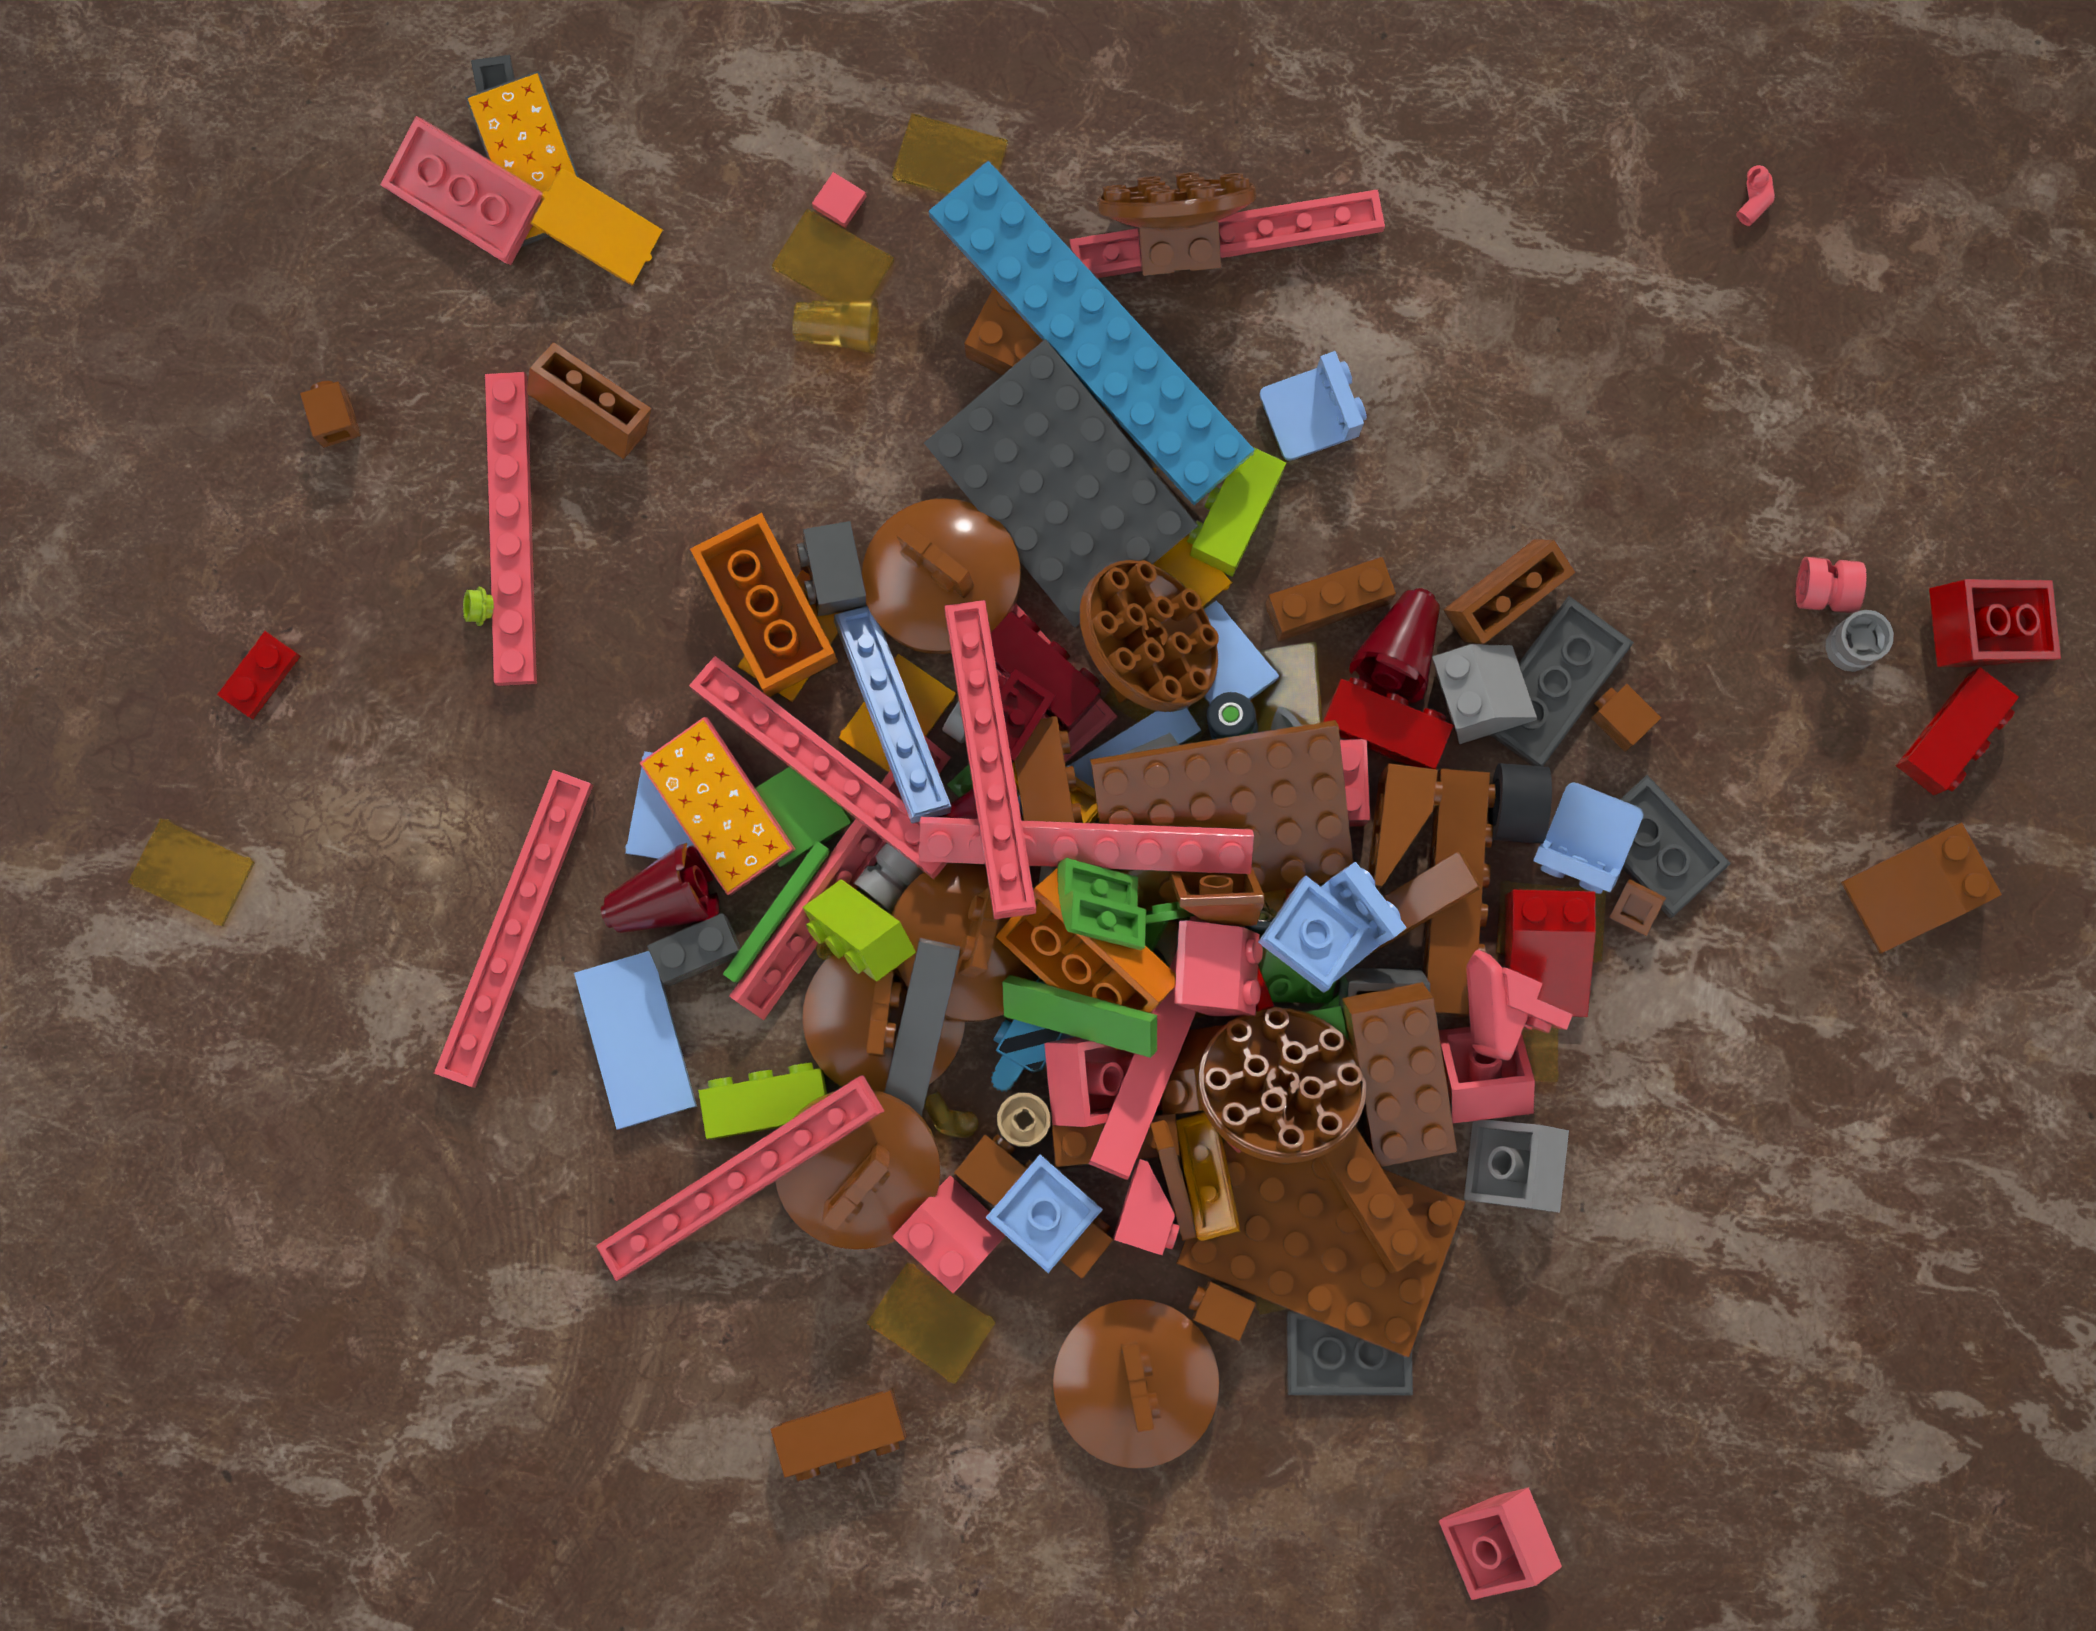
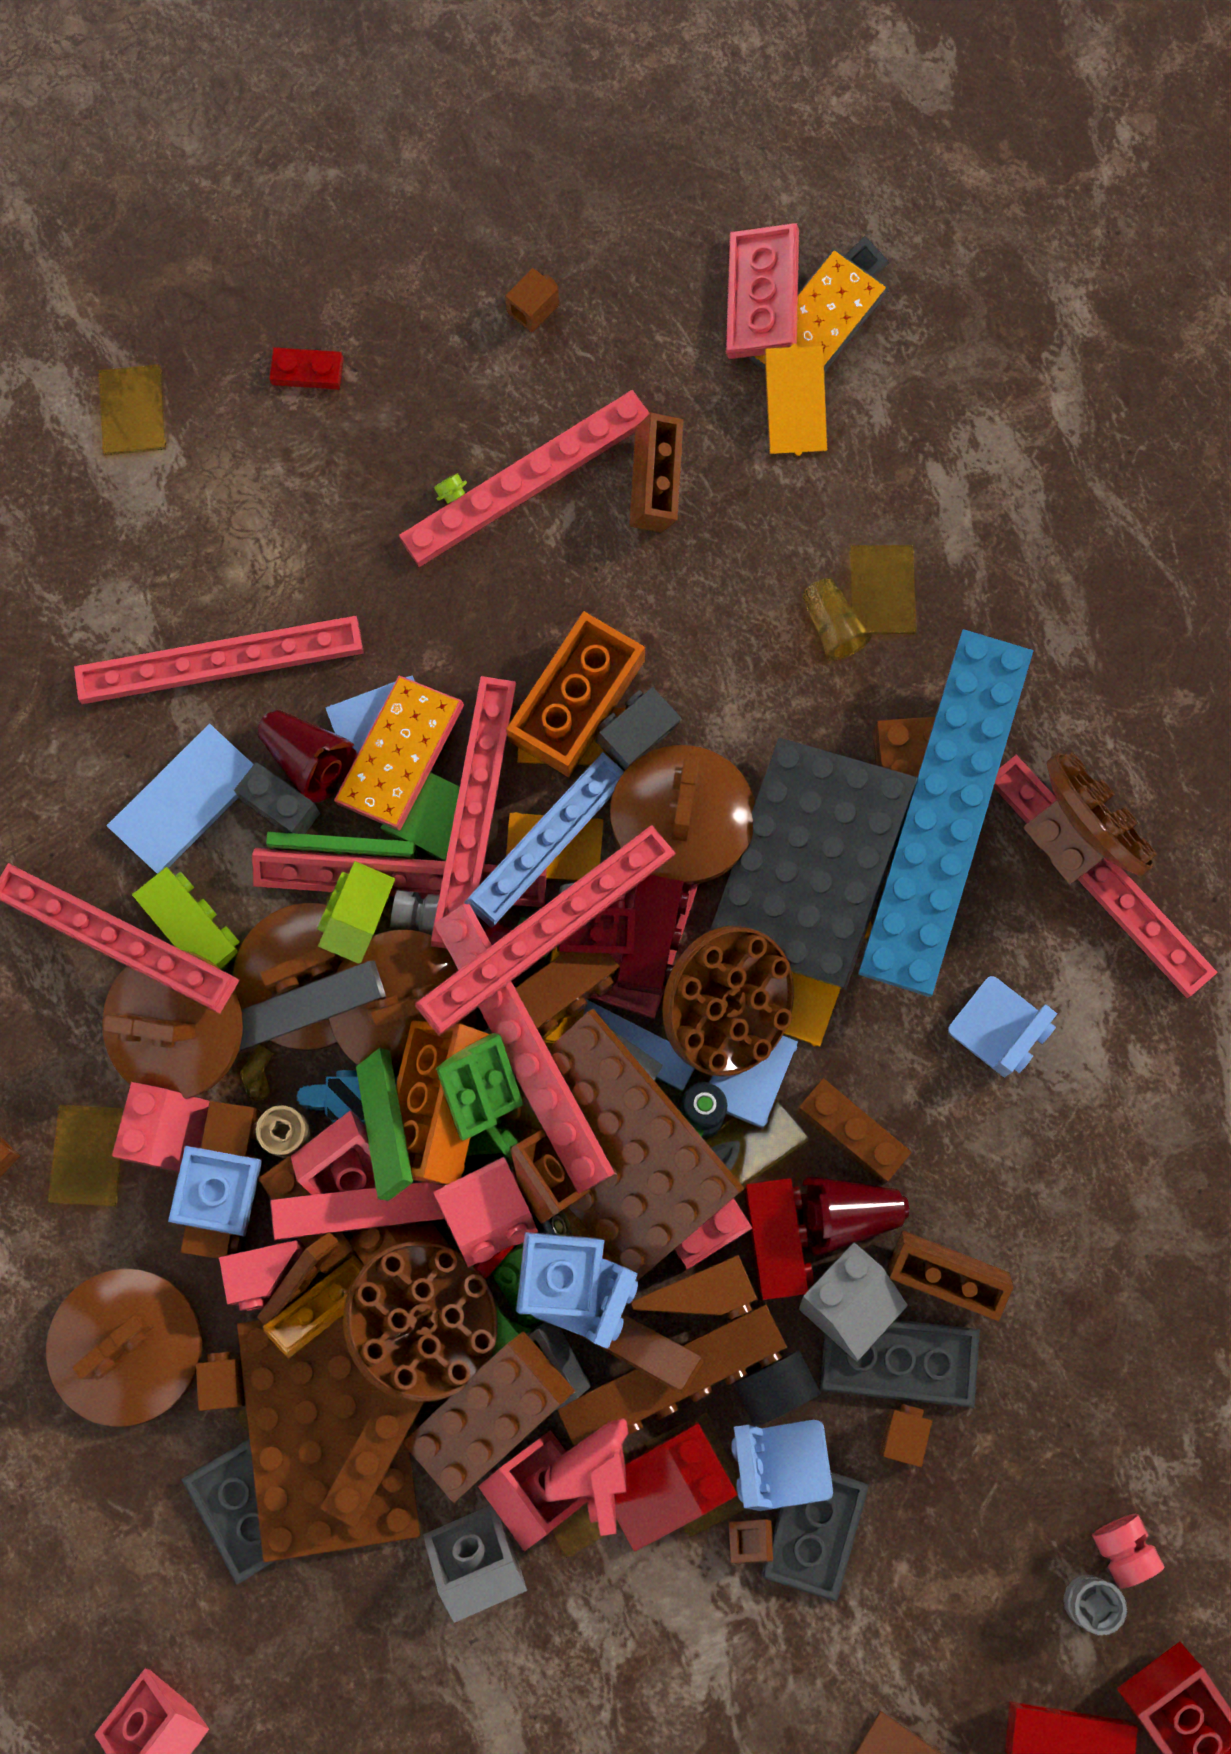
camera: 60 degrees right, 5 degrees down
(839, 200) = (935, 564): coral tile -> none
(944, 154) = (1024, 618): clear yellow piece -> none
(1236, 512) = (879, 1014): lime brick -> none

